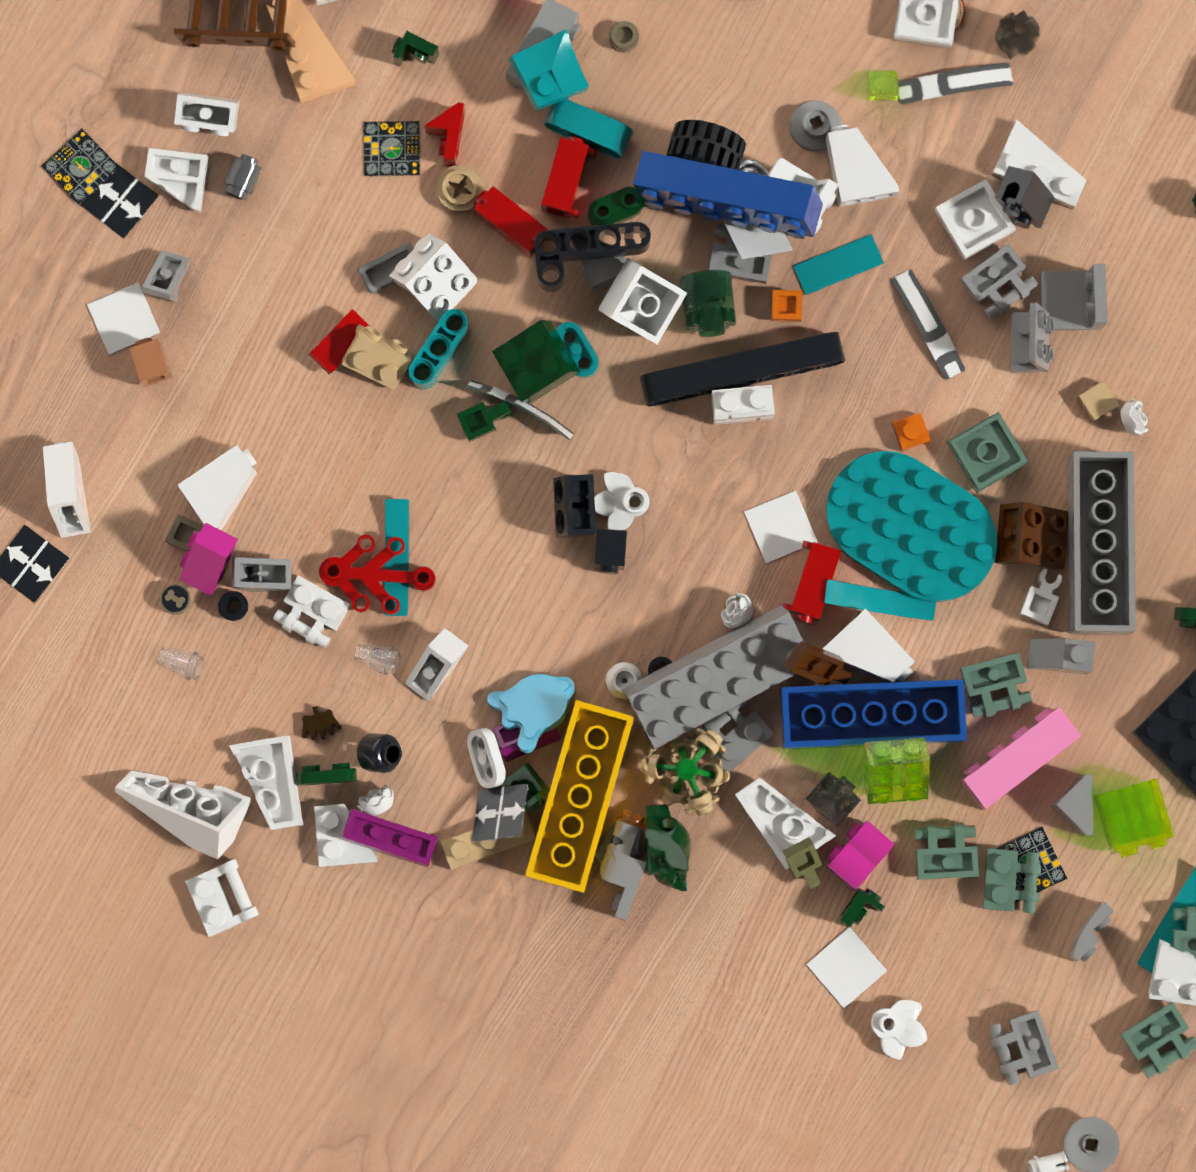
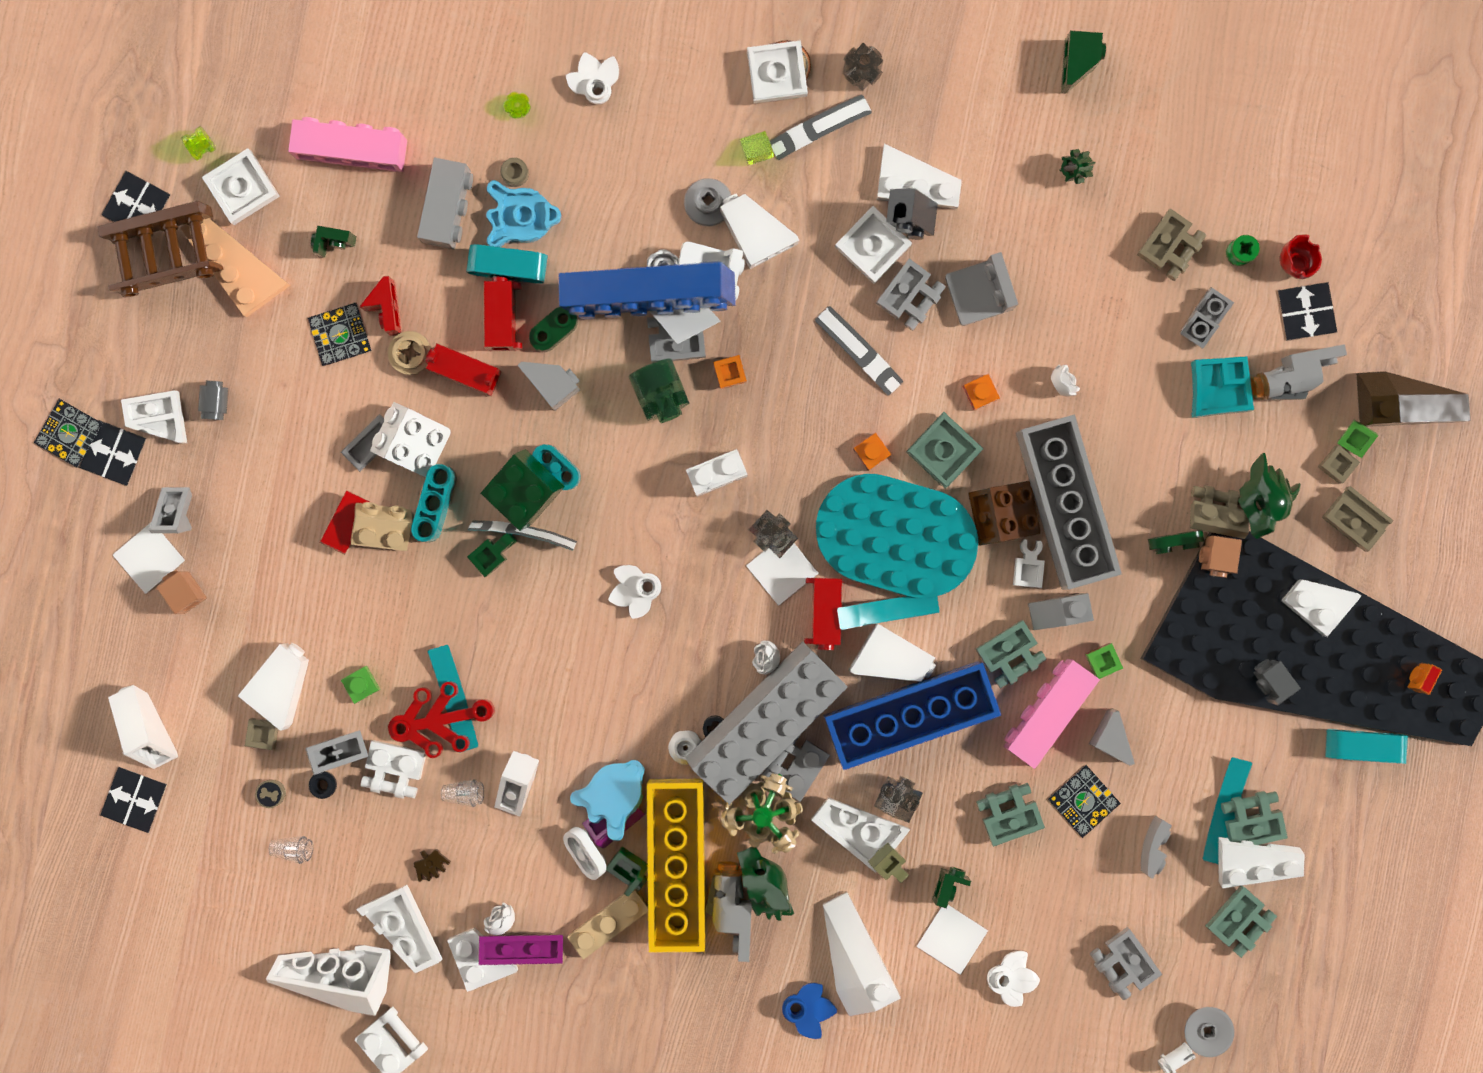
camera: 15 degrees left, 5 degrees up
(206, 112) = (162, 352): white brick -> none
(207, 559) = (284, 754): dark pink brick -> none
(304, 514) = (360, 684): none -> bright green plate
(339, 774) = (460, 905): dark green plate -> none
(379, 753) = (488, 878): black head -> none
(499, 812) = (610, 900): black sticker -> none
(549, 71) = (455, 224): teal plate -> none
(574, 505) = (595, 608): black brick -> none
(592, 249) = (541, 375): black beam -> none
(610, 550) = (639, 638): black brick -> none
(616, 82) = (520, 215): none -> medium azure tile
(642, 301) = (600, 408): white brick -> none
(676, 998) = (812, 1012): none -> blue plate
(706, 143) = (615, 250): black tyre -> none
(738, 963) = (857, 966): none -> white wedge
(742, 369) = (707, 440): black beam -> none
(782, 484) = (773, 533): none -> clear smoke brick
(817, 664) = (850, 689): reddish brown plate -> none
(838, 264) = (764, 320): teal sticker -> none
(859, 855) = (935, 839): dark pink brick -> none
(896, 770) = (947, 759): clear neon green brick -> none
(1000, 880) = (1064, 822): sand green plate -> none
(1031, 340) = (954, 339): light grey bracket -> none
(1043, 404) = (981, 392): none -> orange plate
(1092, 721) = (1104, 660): none -> bright green plate
(1098, 401) = (1028, 374): tan tile -> none
(1134, 817) = (1165, 736): clear neon green brick -> none

